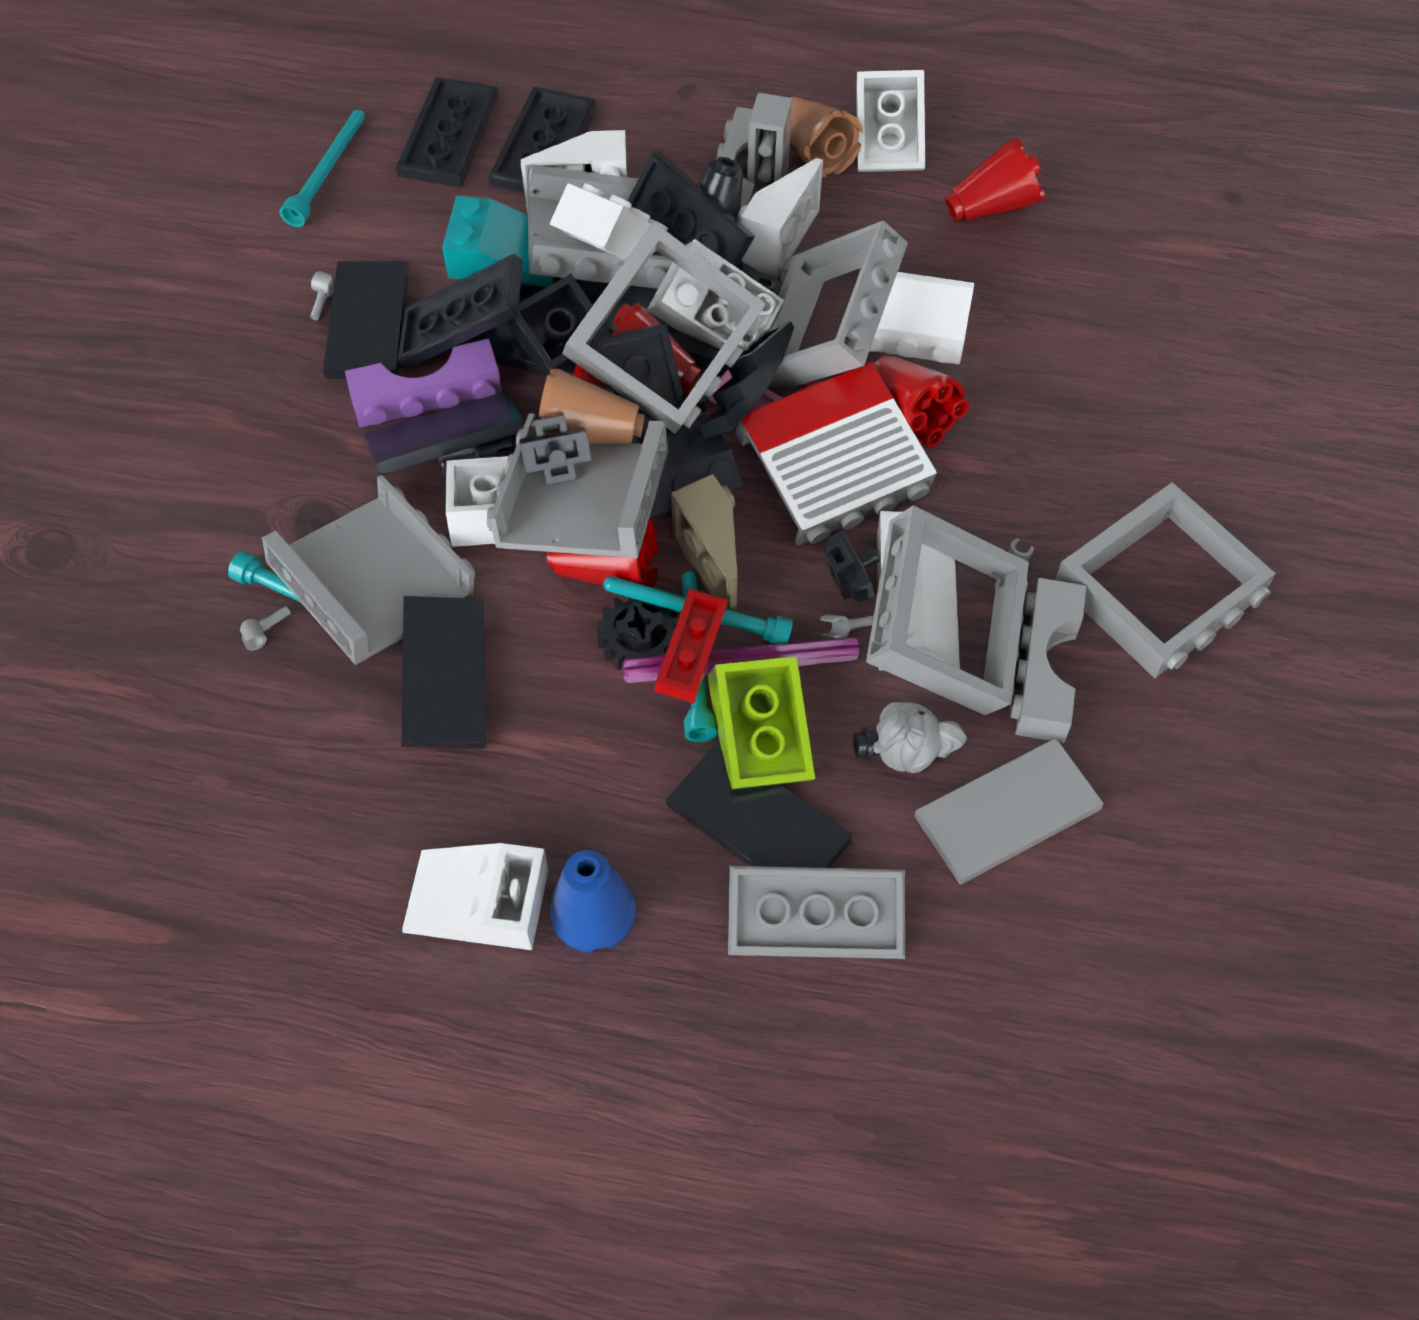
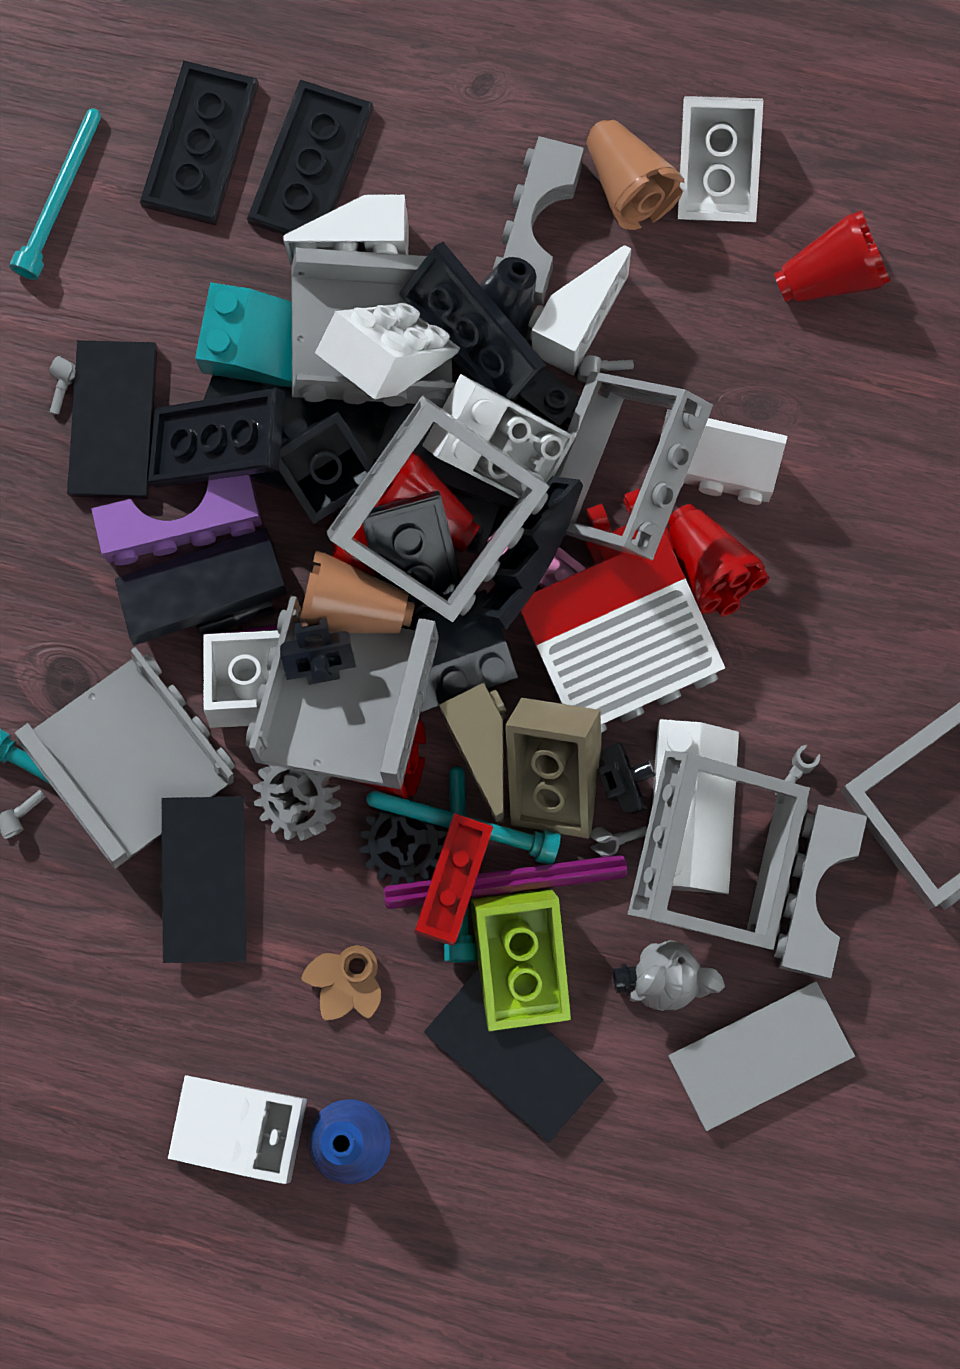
camera: 10 degrees right, 20 degrees up
(539, 609) = (290, 806): none -> light grey gear
(583, 765) = (341, 987): none -> medium nougat plate
(769, 140) = (571, 215): light grey brick -> none
(782, 555) = (553, 766): none -> dark tan slope
(816, 912) = (562, 1160): light grey tile -> none

